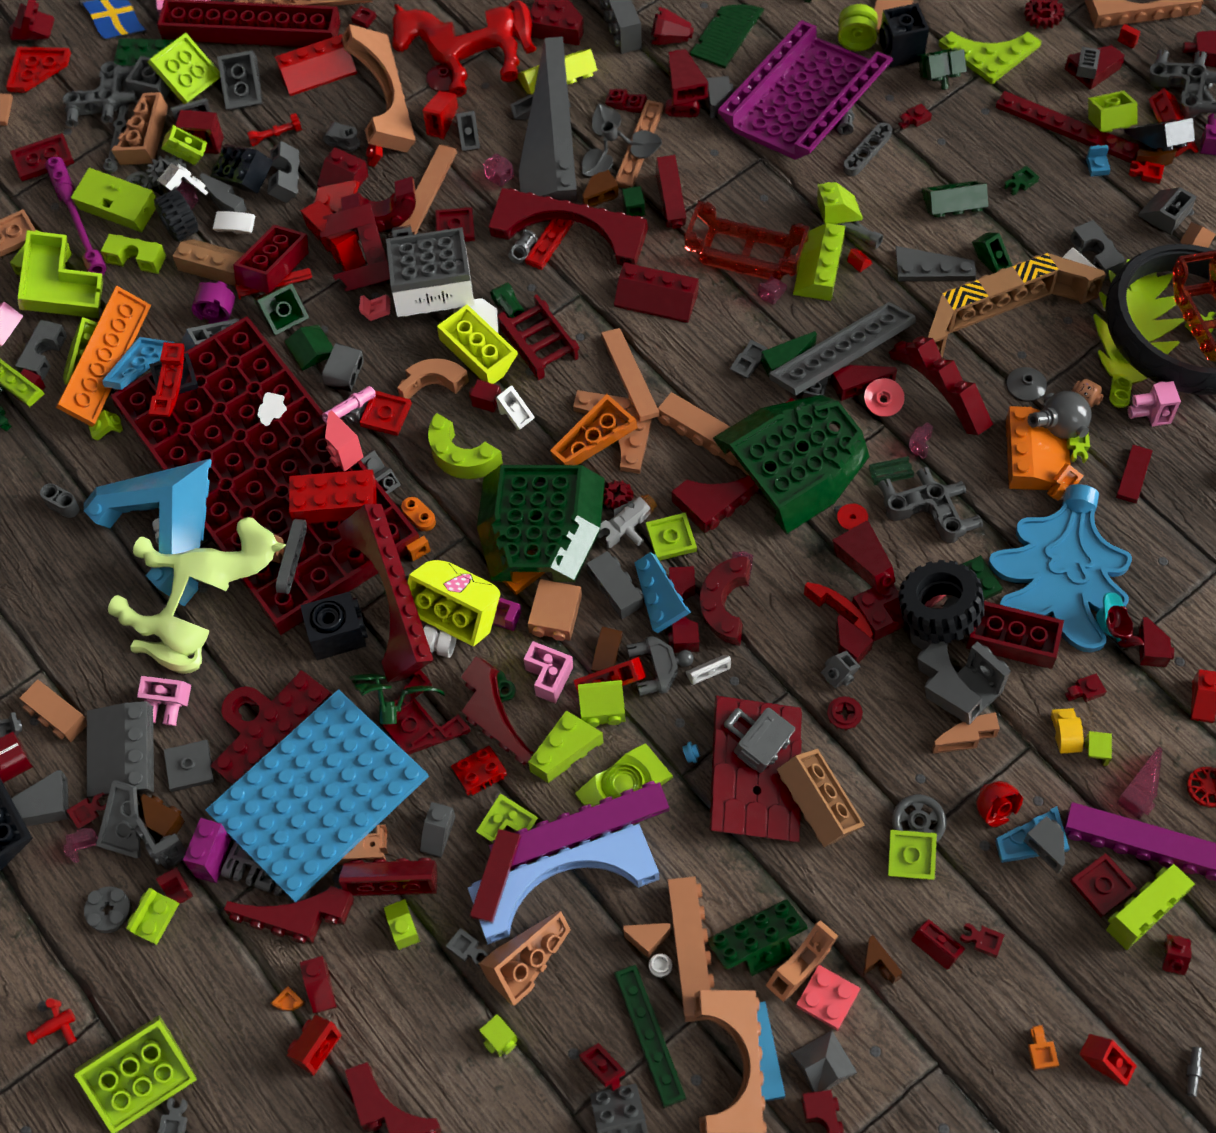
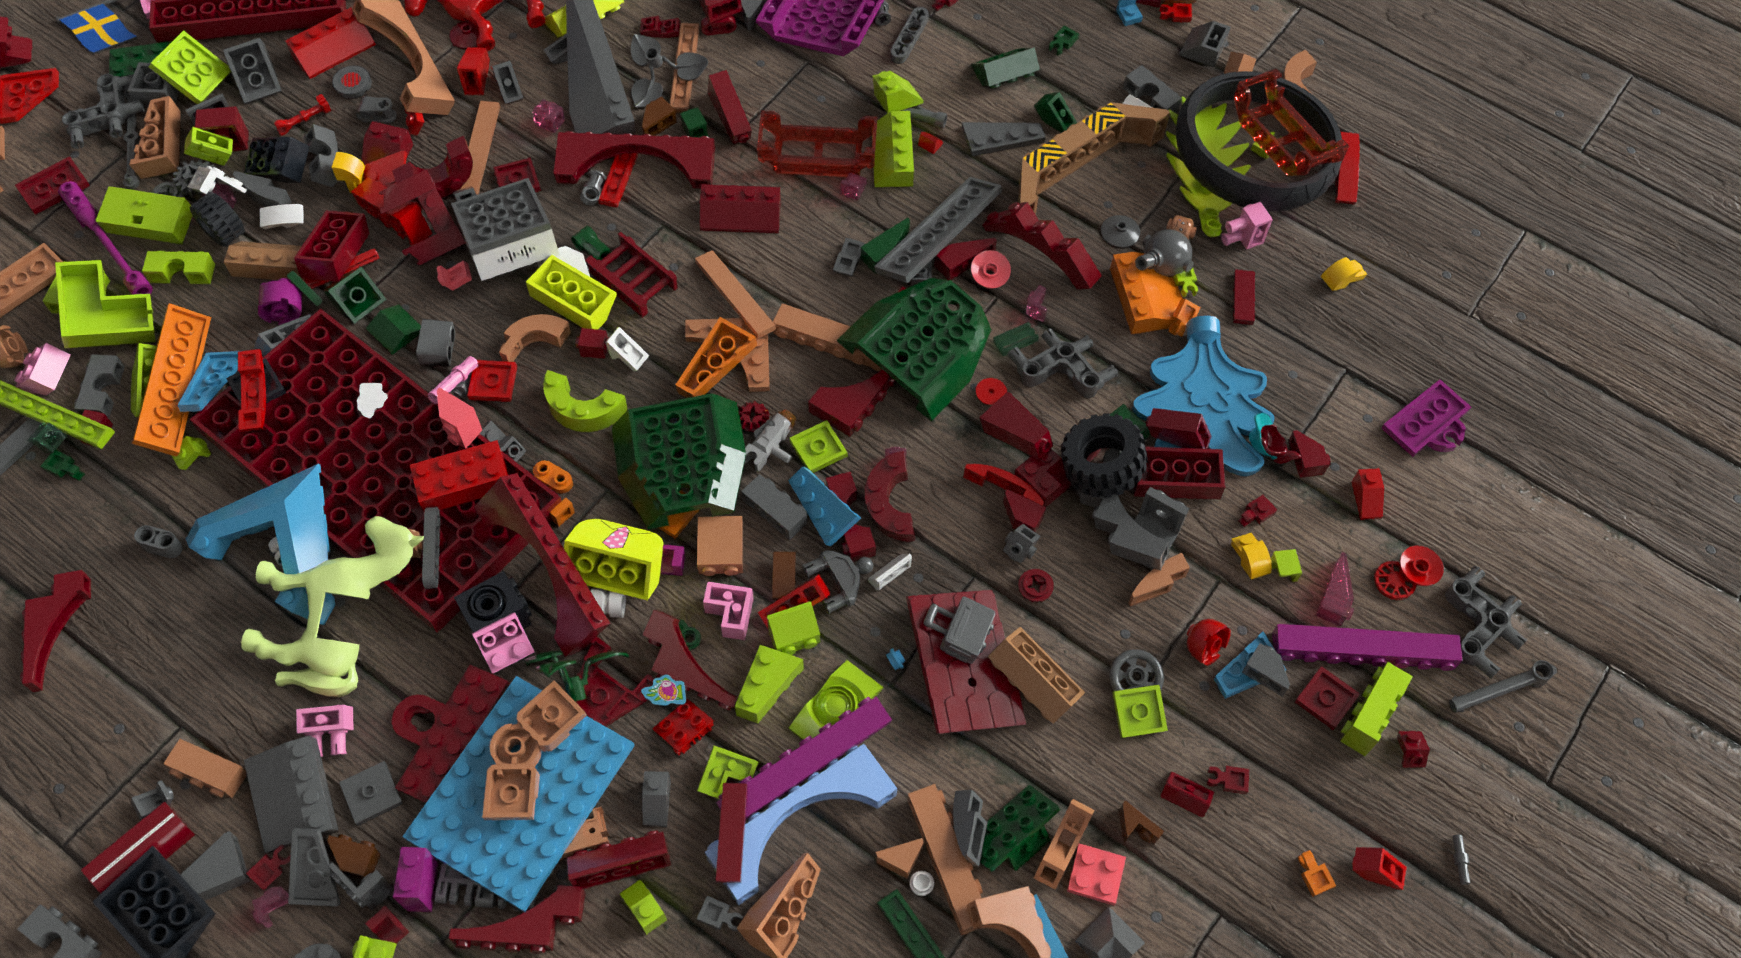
camera: 20 degrees left, 0 degrees up
(237, 293) = (306, 290): none -> dark green tile
(302, 189) = (348, 169): none -> yellow brick
(312, 781) = (514, 780): none -> nougat plate
(326, 105) = (351, 81): none -> tile
(335, 656) = (503, 642): none -> bright pink slope
(469, 734) = (665, 691): none -> sticker
(717, 922) = (969, 824): none -> dark grey slope
(1027, 591) = (1179, 428): none -> dark red slope

